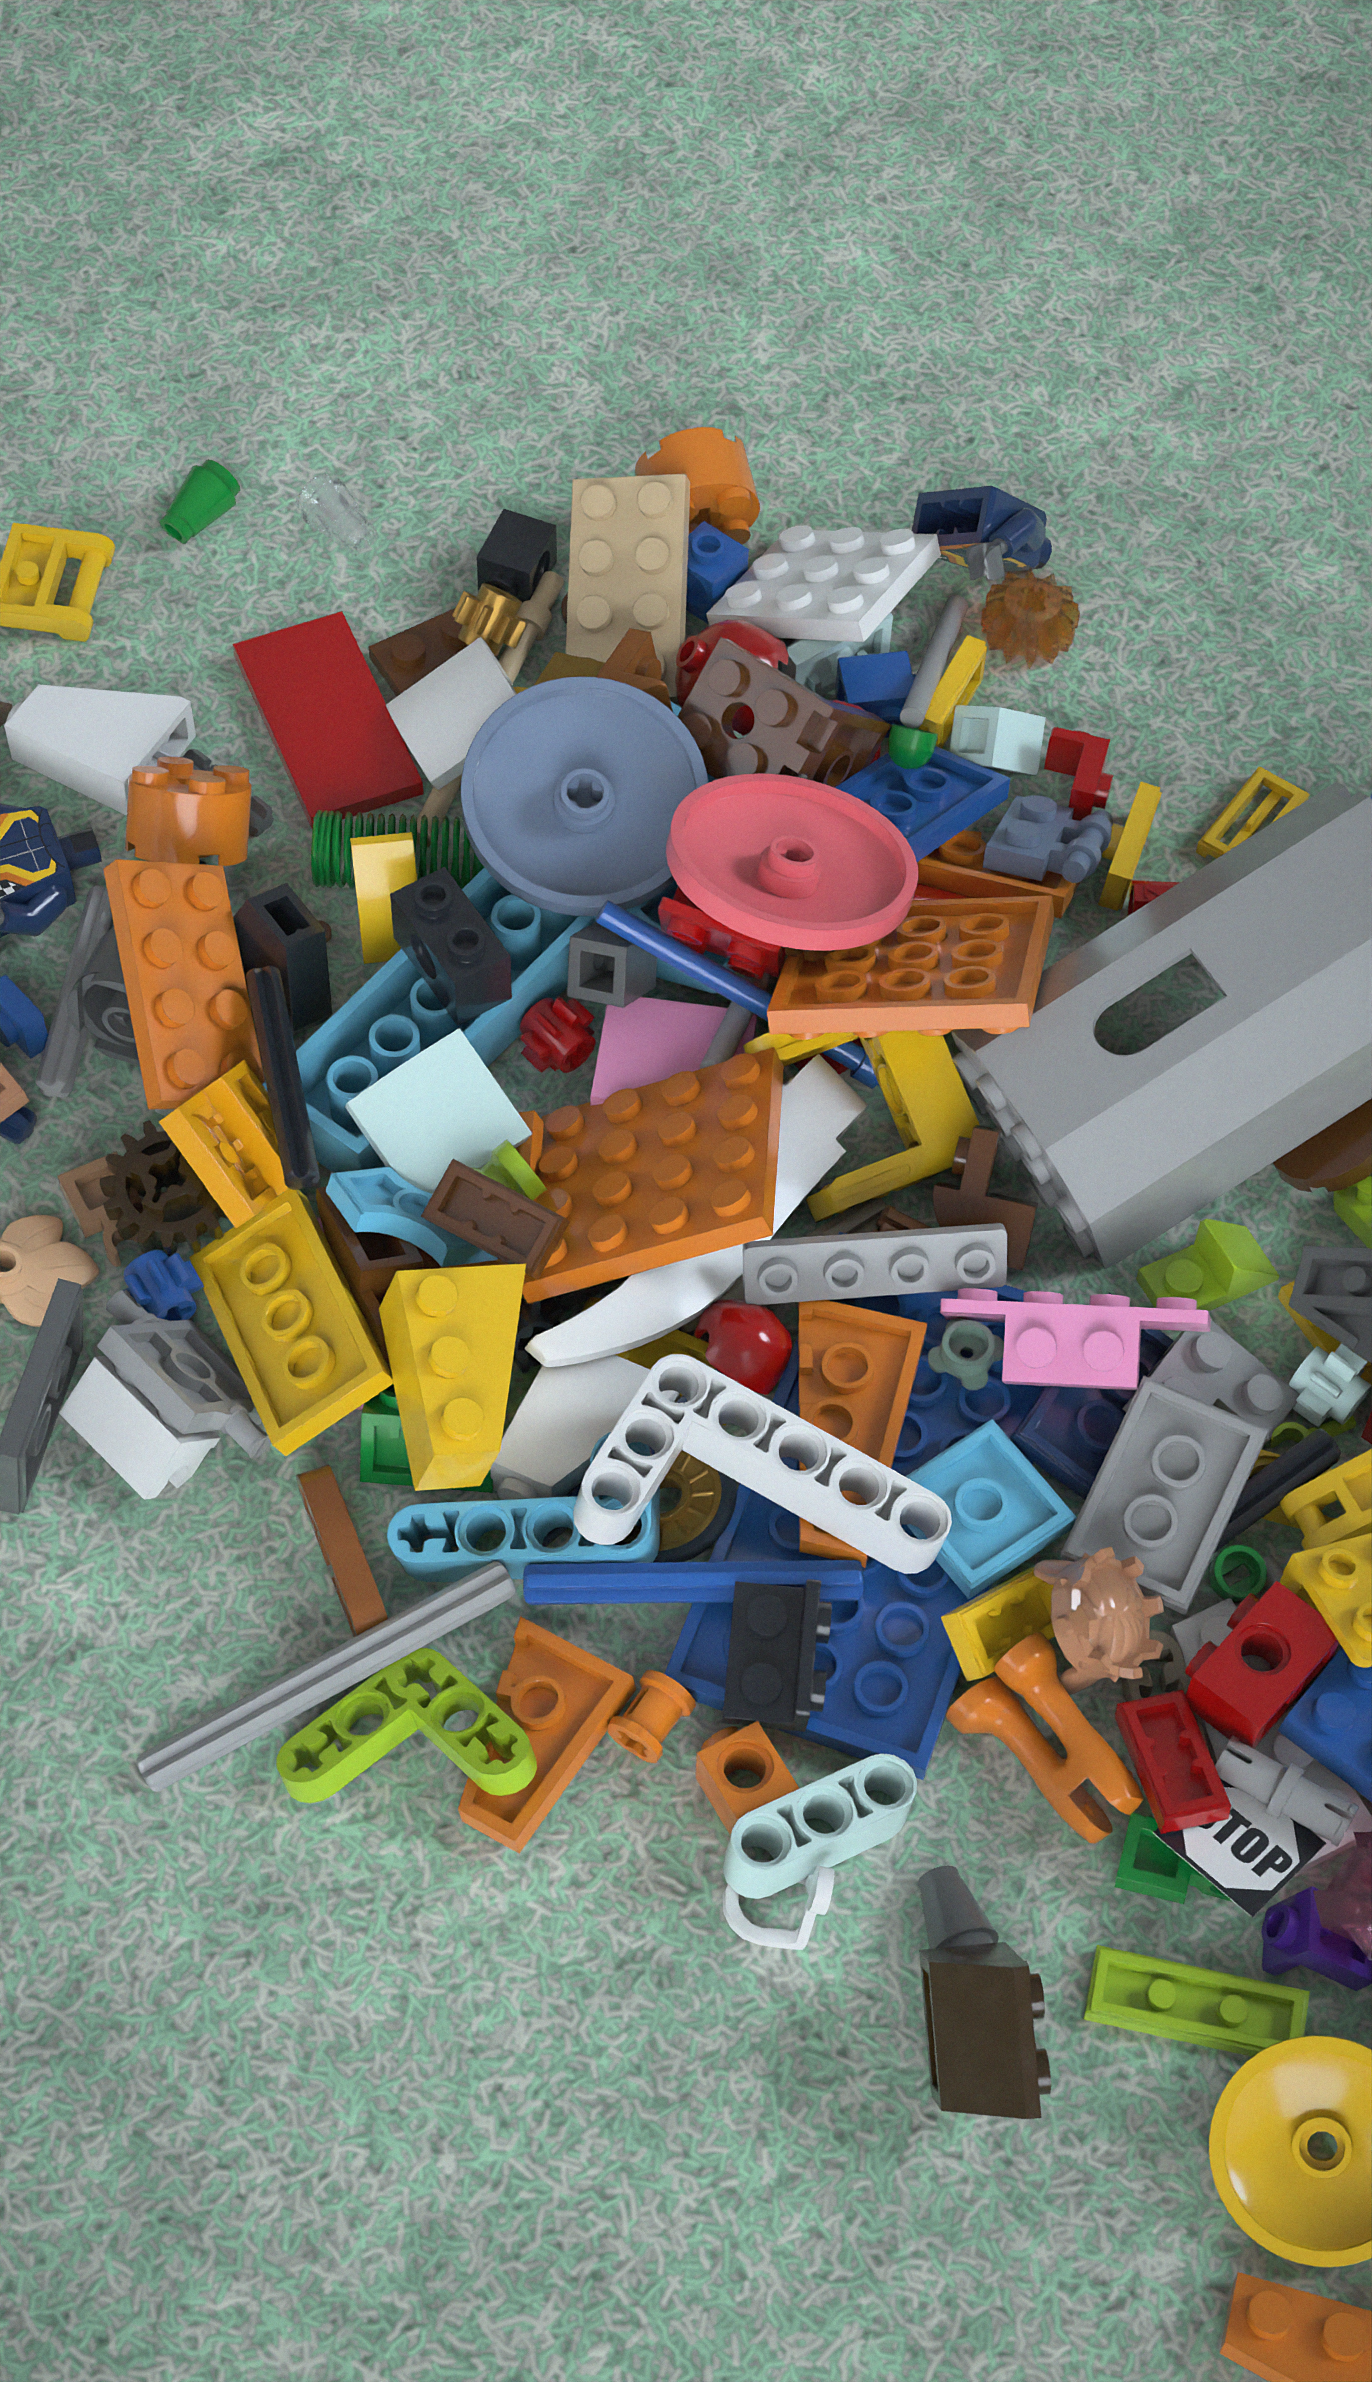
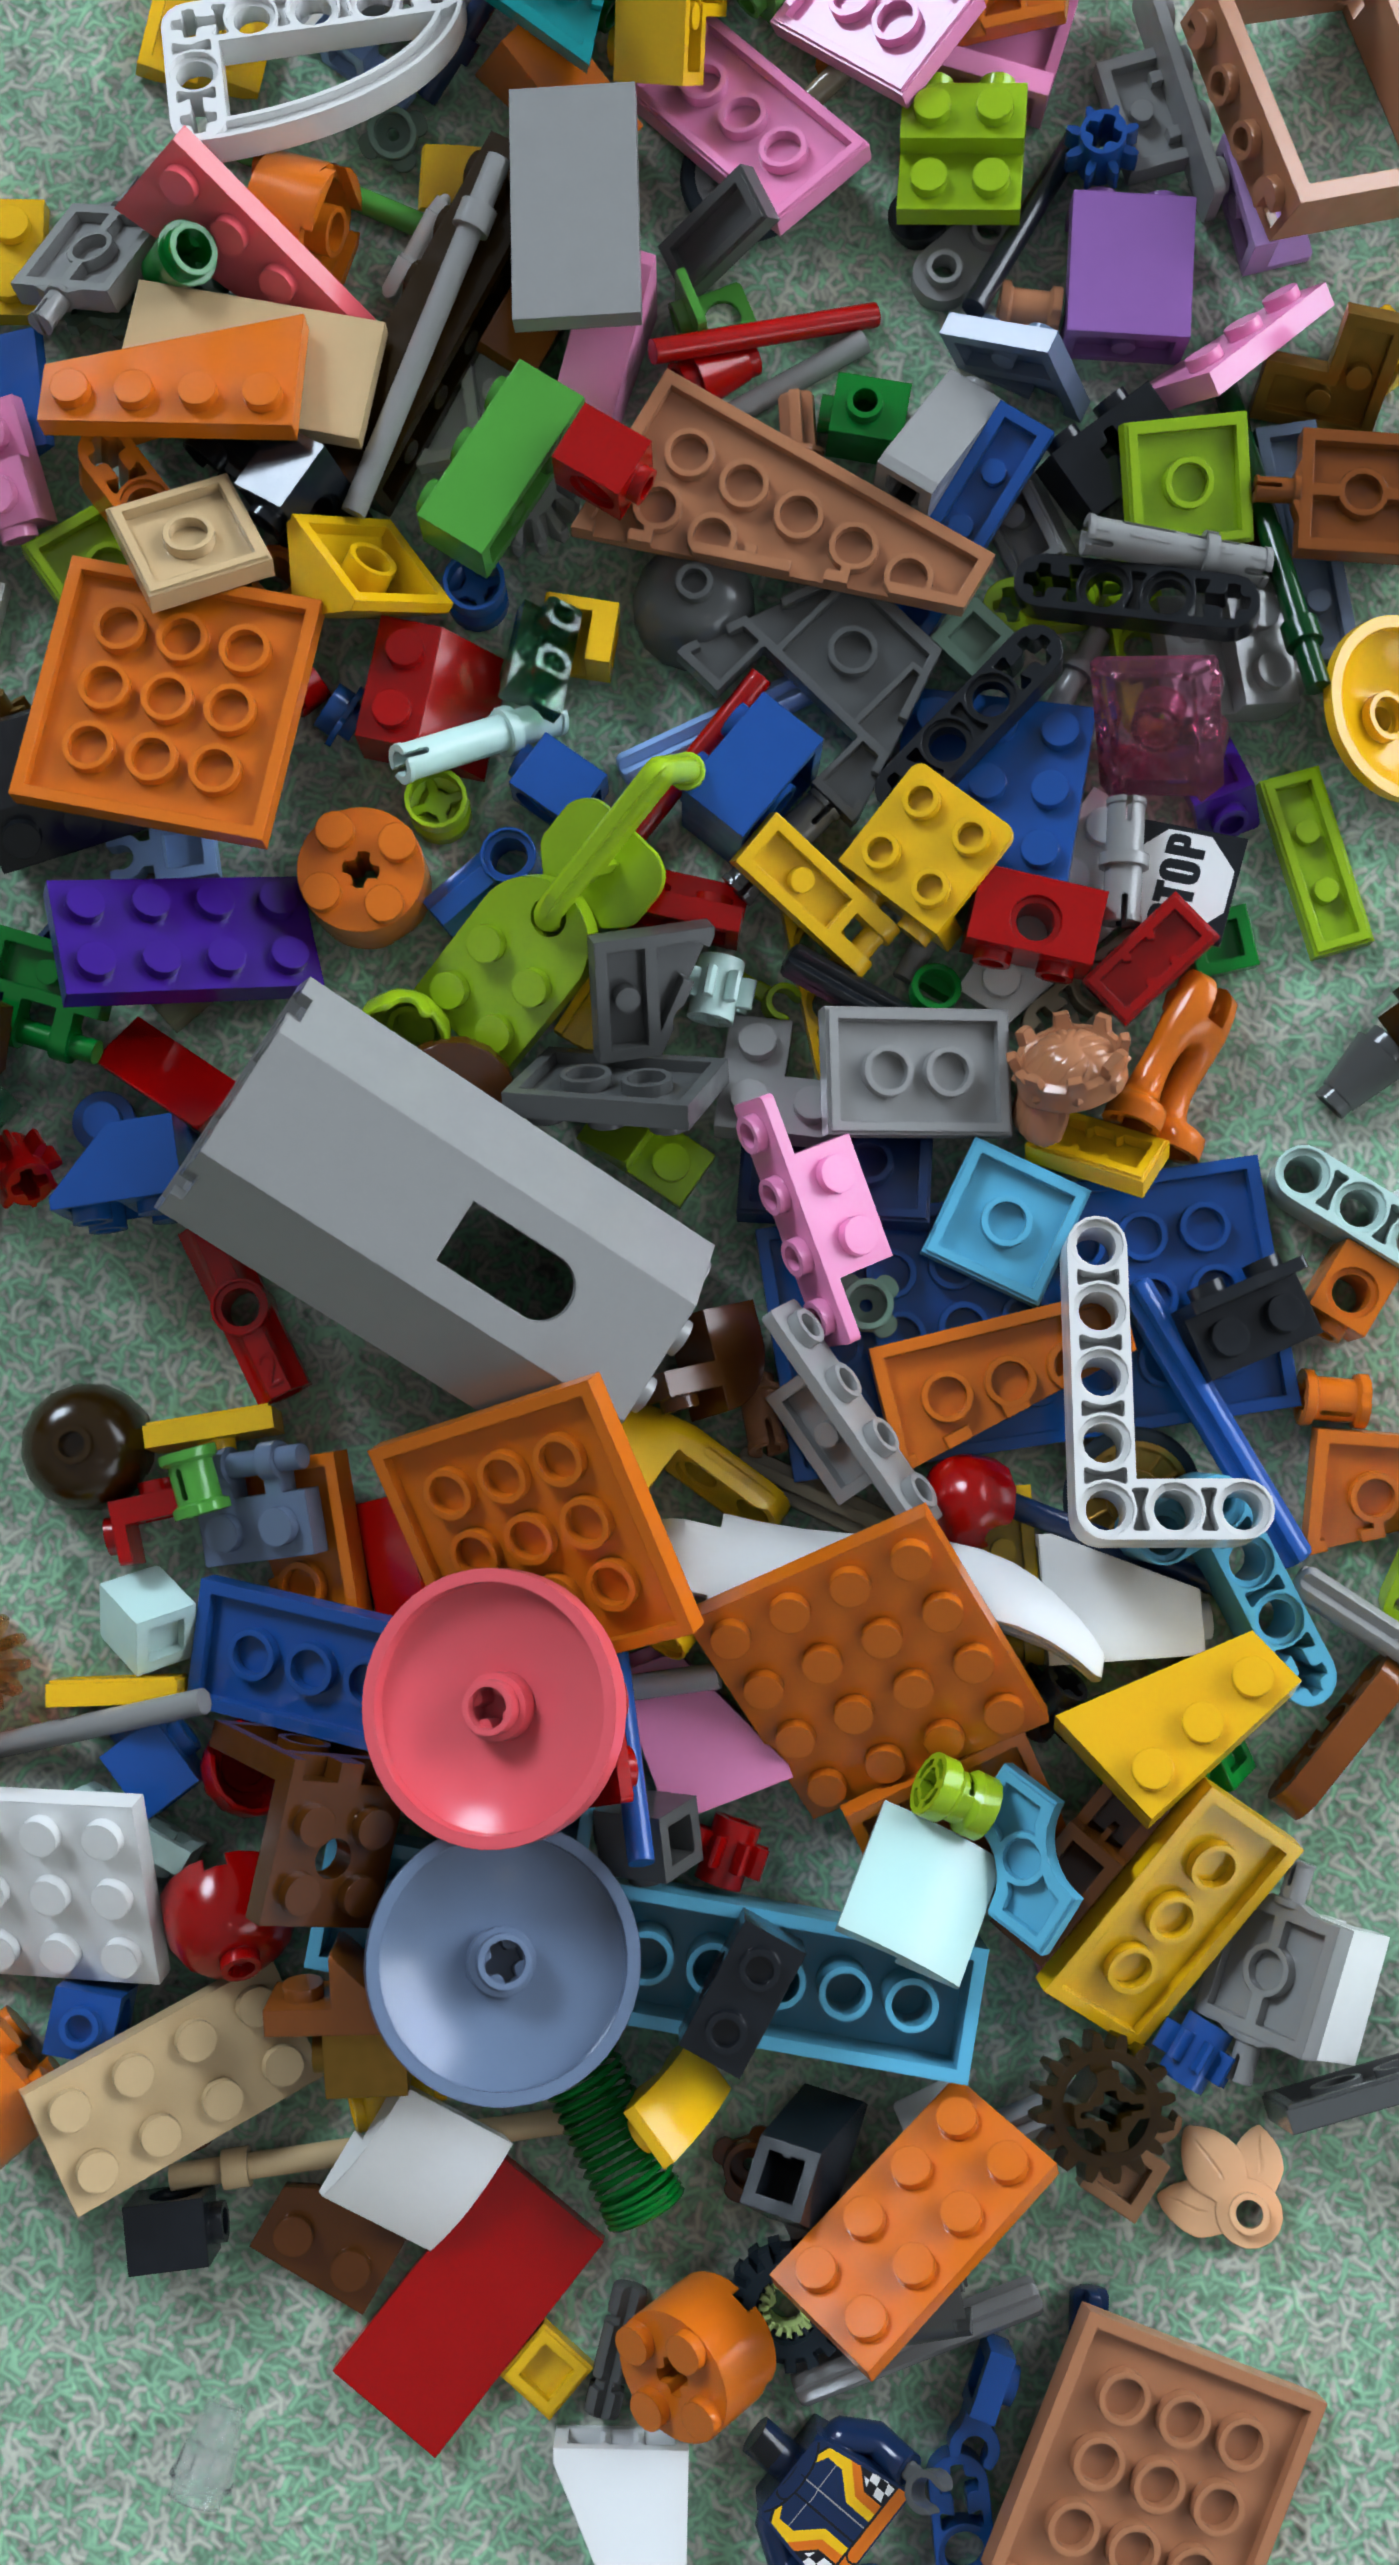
camera: 120 degrees left, 25 degrees up
(231, 1142) = (1047, 2065): light orange slope -> none
(243, 742) = (548, 2369): none -> yellow tile
(282, 1078) = (958, 2069): black axle -> none
(490, 616) = (284, 2203): pearl gold gear -> none
(495, 1218) = (1016, 1773): reddish brown plate -> none
(910, 747) = (227, 1687): green hinge -> none
(1093, 791) = (194, 1481): none -> bright green bush
(1168, 750) = (86, 1446): none -> dark brown cylinder
(1210, 842) = (165, 1339): yellow tile -> none
(1264, 1233) = (650, 1092): none -> dark grey plate

